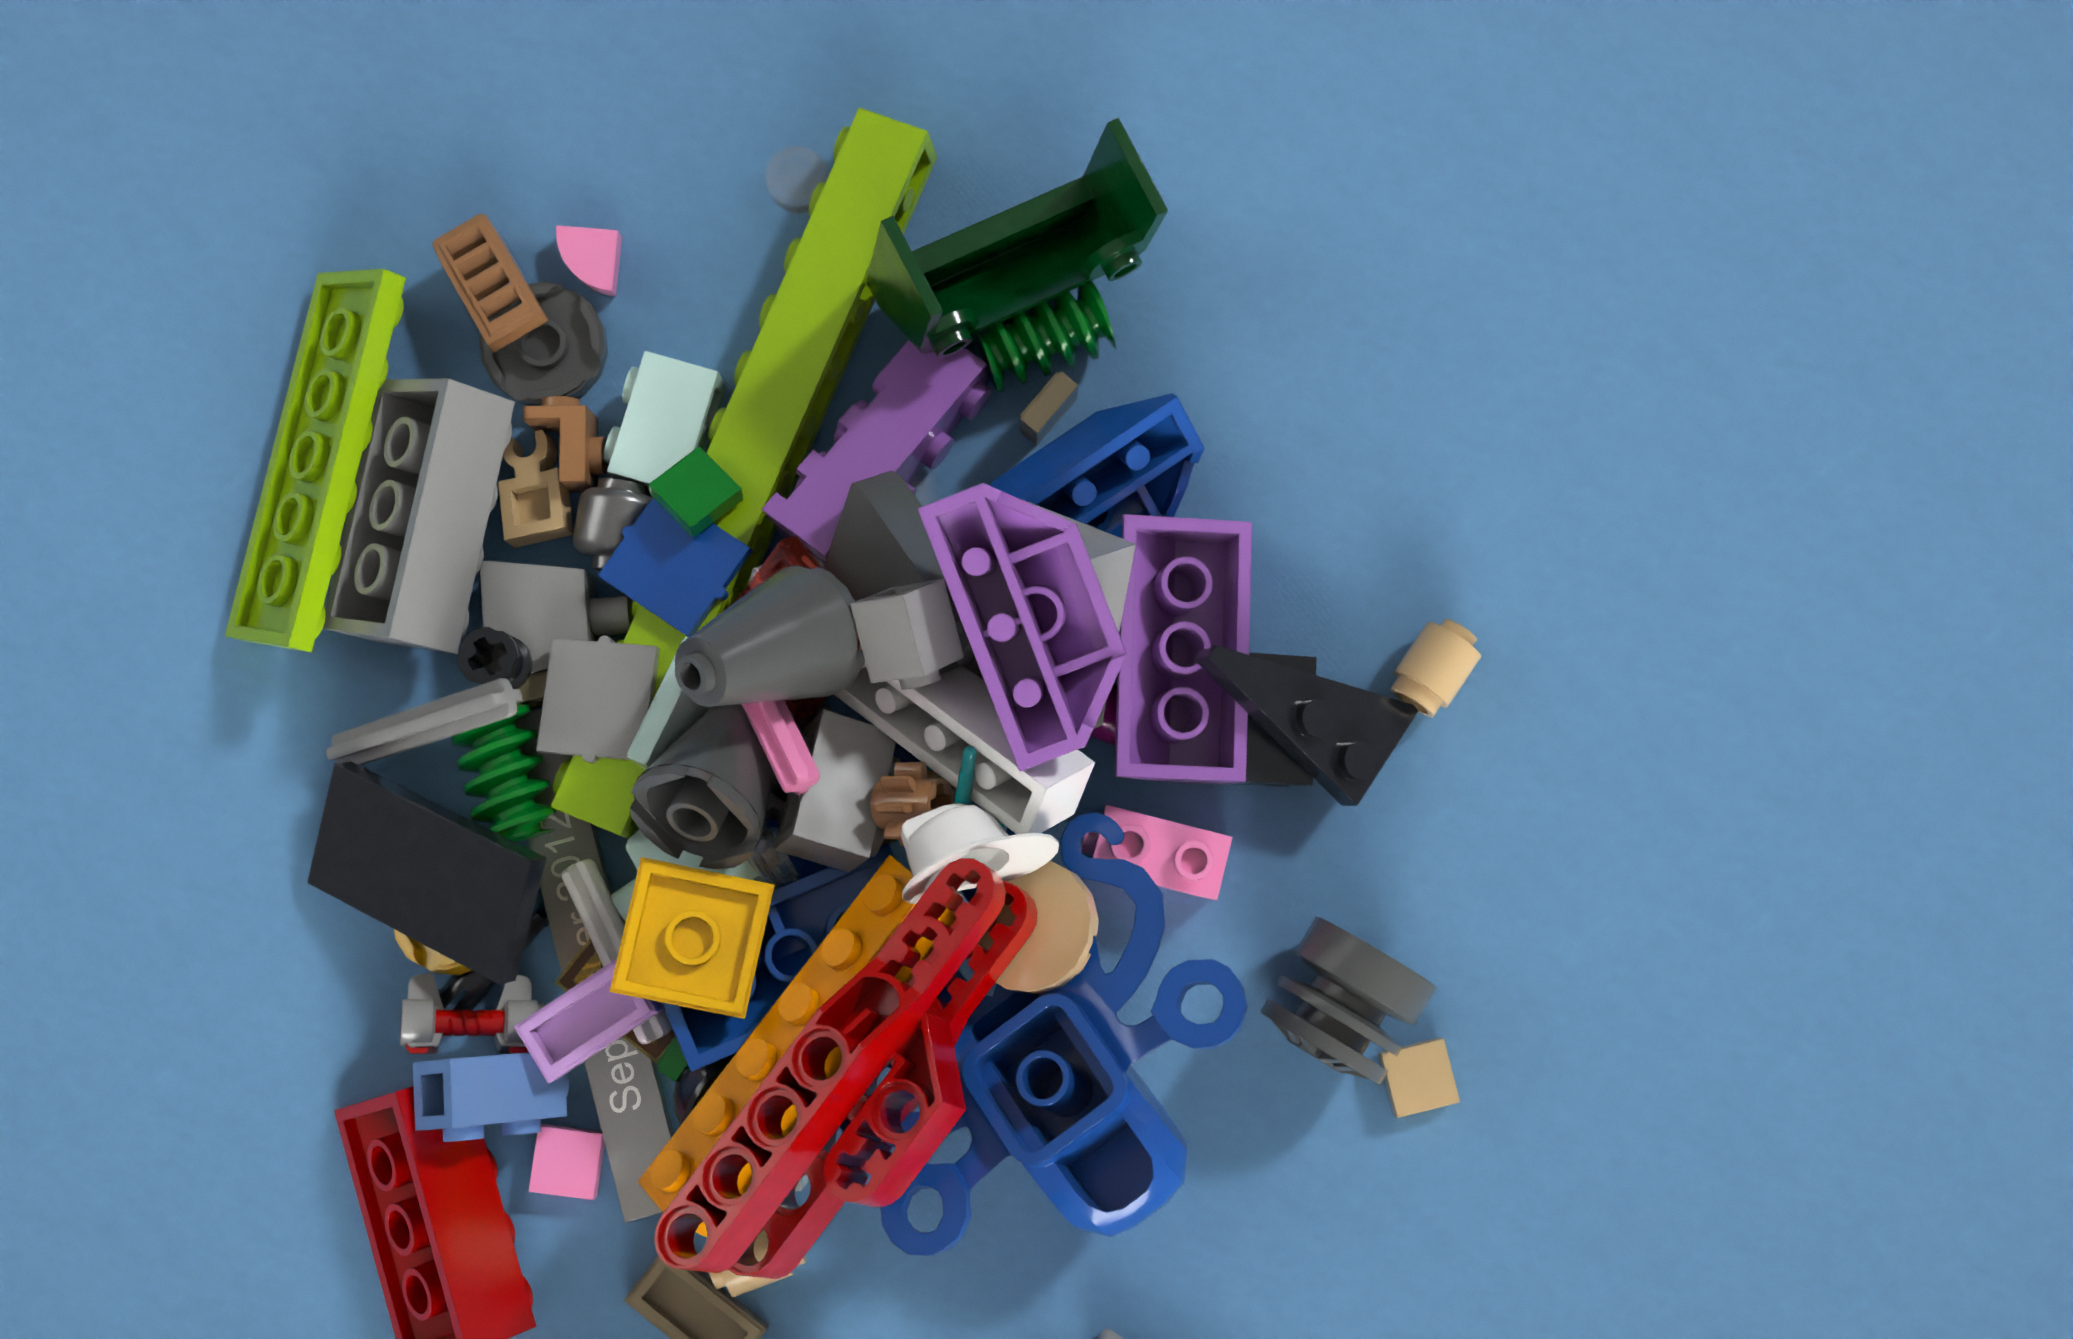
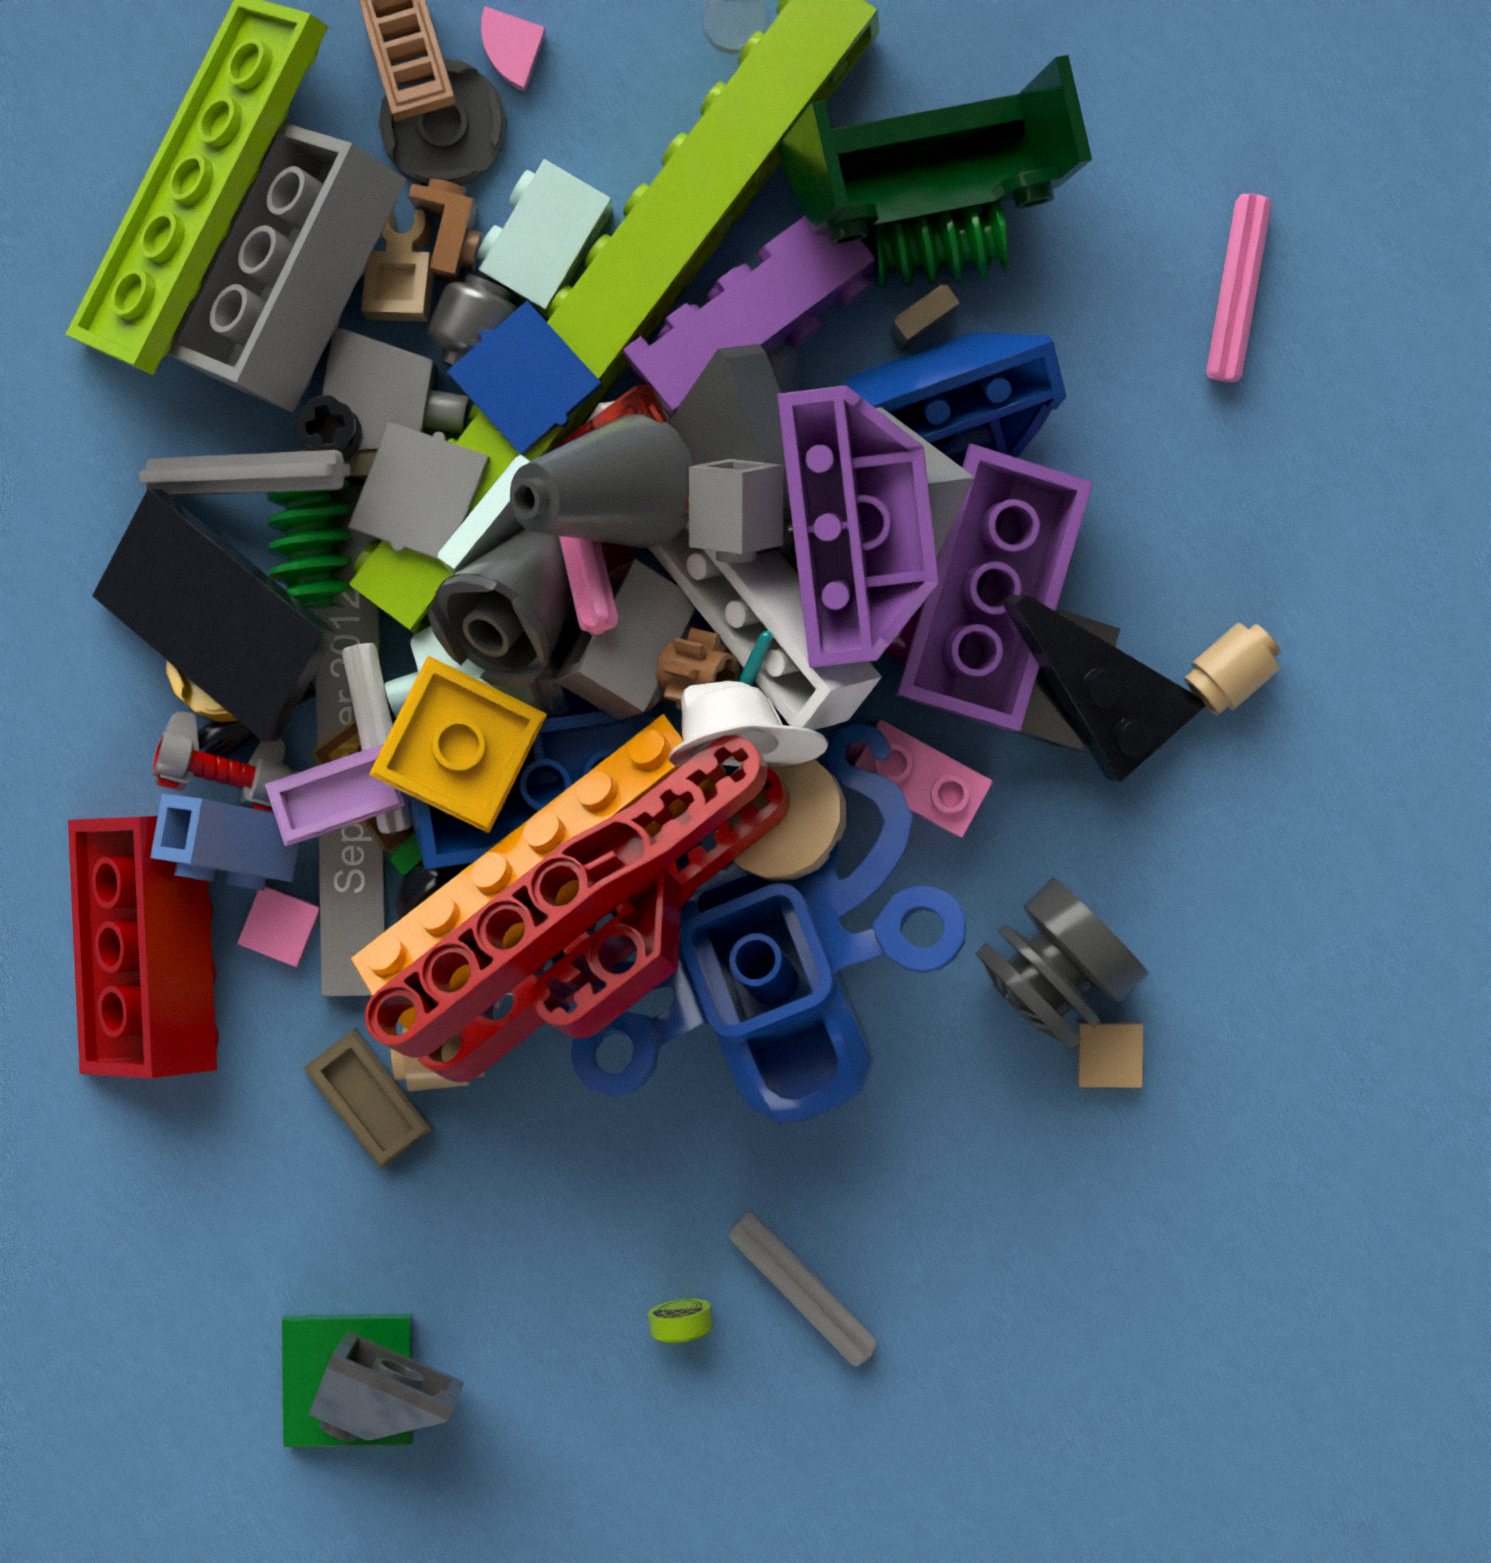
camera: 15 degrees right, 5 degrees up
(696, 491) = (562, 314): green tile -> none
(1340, 306) = (1238, 288): none -> bright pink axle

